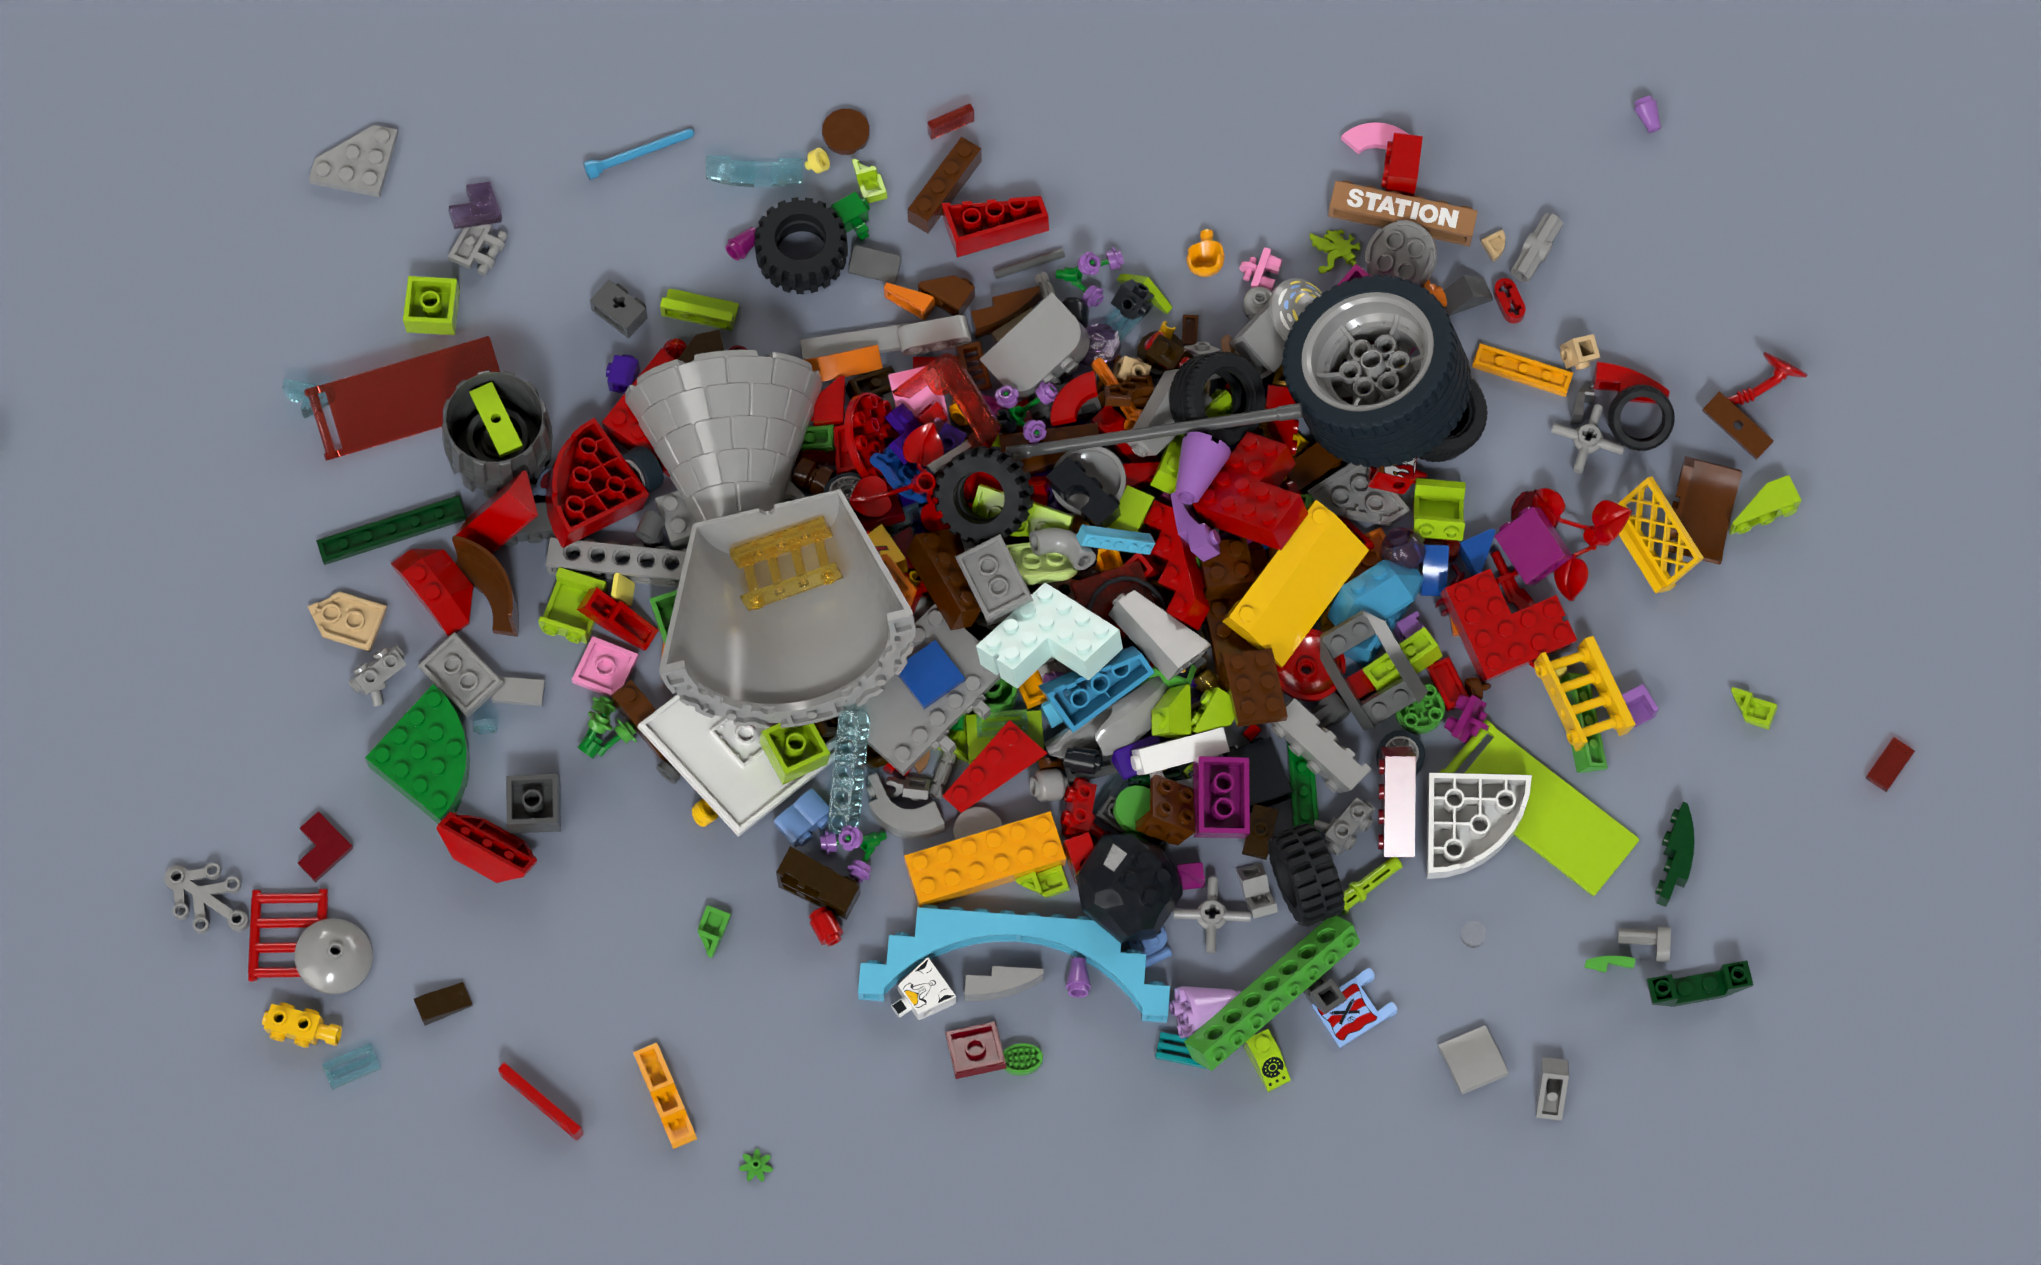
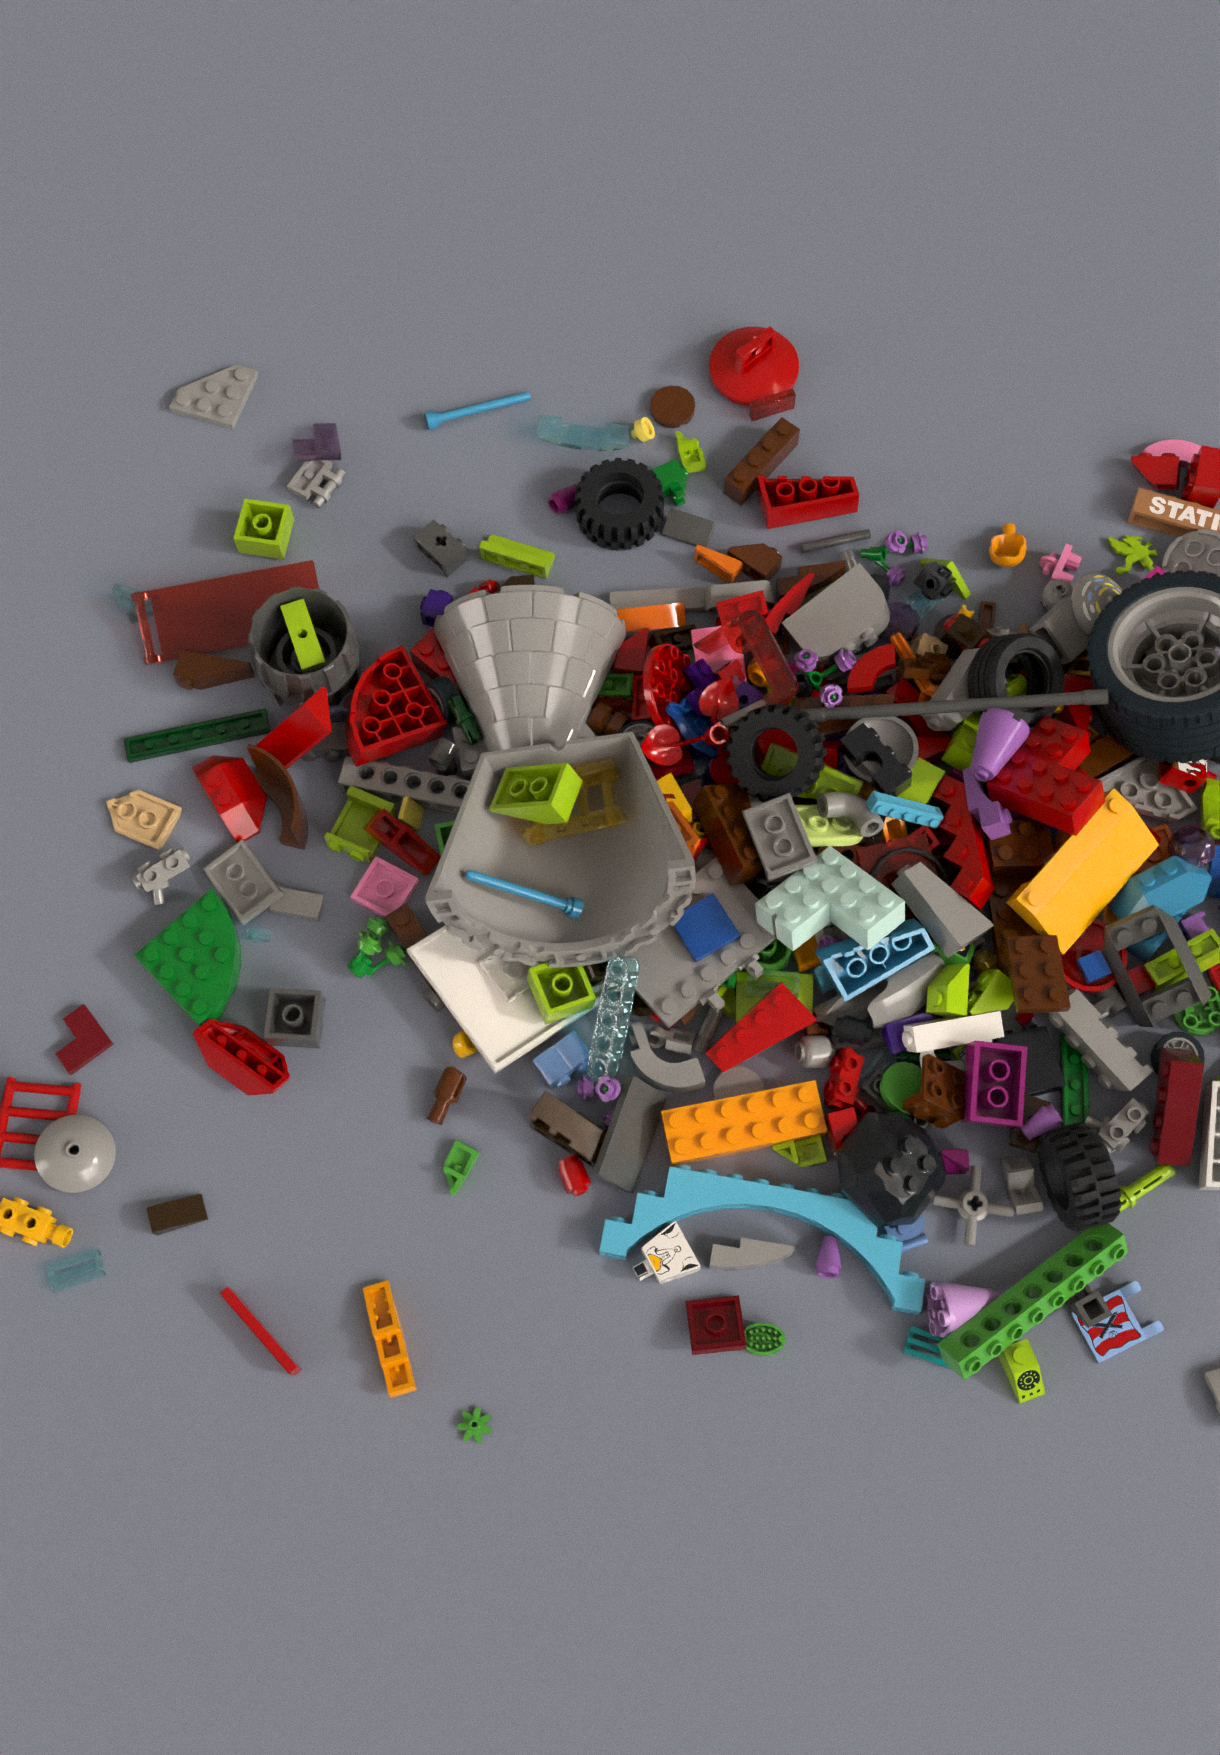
camera: 10 degrees right, 0 degrees up
(391, 462) = (208, 671): none -> reddish brown slope
(668, 490) = (465, 720): none -> dark green pin
(692, 861) = (446, 1093): none -> reddish brown arm
(753, 558) = (538, 793): none -> lime slope
(797, 666) = (571, 906): none -> dark azure piece
(876, 881) = (629, 1134): none -> dark grey tile
(927, 78) = (753, 364): none -> red bracket
(934, 346) = (733, 607): none -> red panel
(983, 340) = (788, 604): none -> red slope
(1270, 825) = (1043, 1120): none -> medium lavender cone
(1312, 676) = (1093, 967): none -> blue tile
(1358, 160) = (1159, 471): none -> red slope

